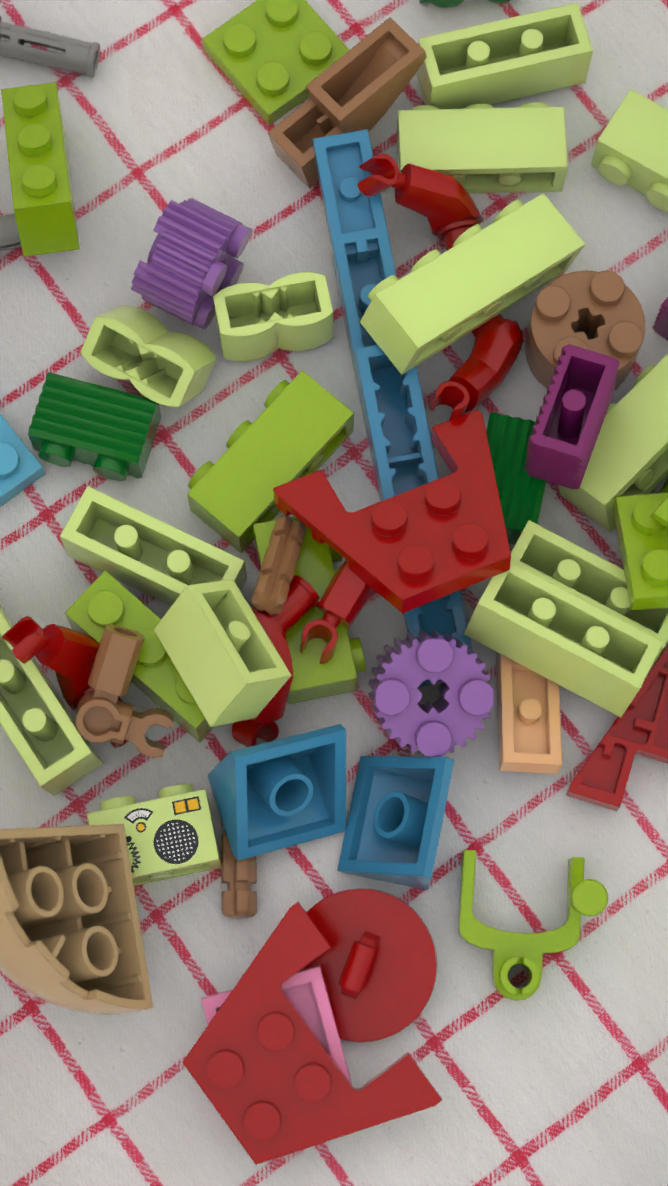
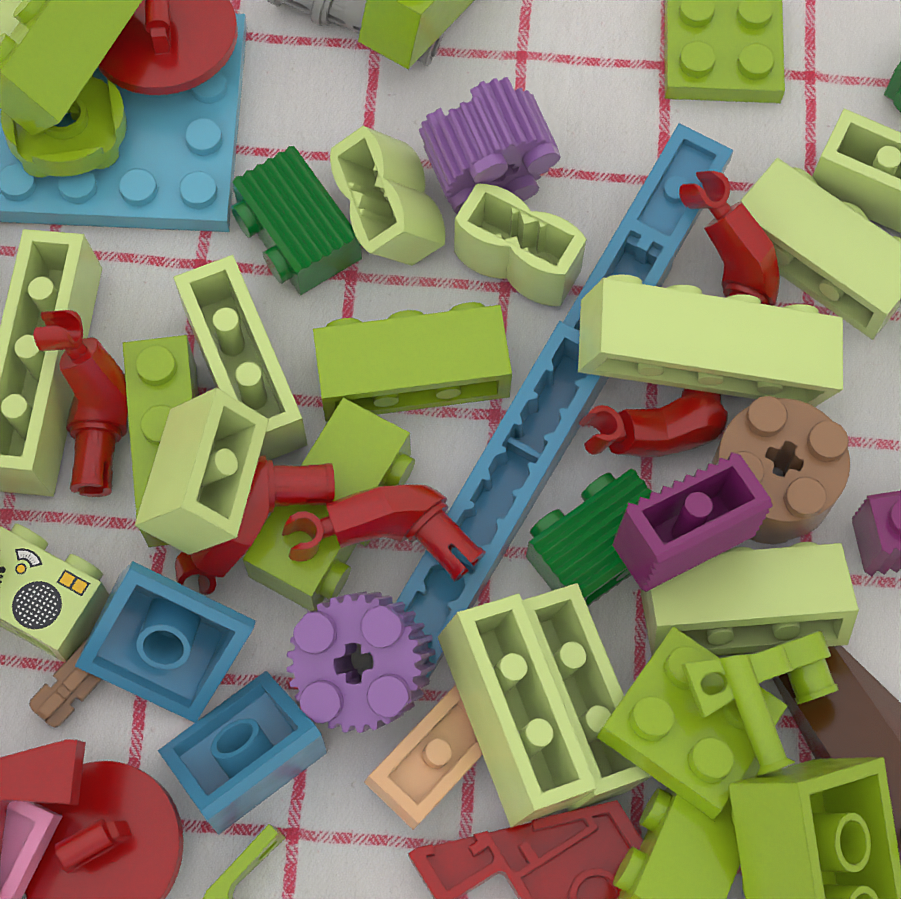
camera: 40 degrees right, 5 degrees down
(99, 712) = (75, 447): medium nougat bar -> none
(278, 565) = (322, 442): medium nougat axle -> none
(348, 96) = (750, 112): medium nougat slope -> none
(421, 539) = (467, 521): red wing -> none

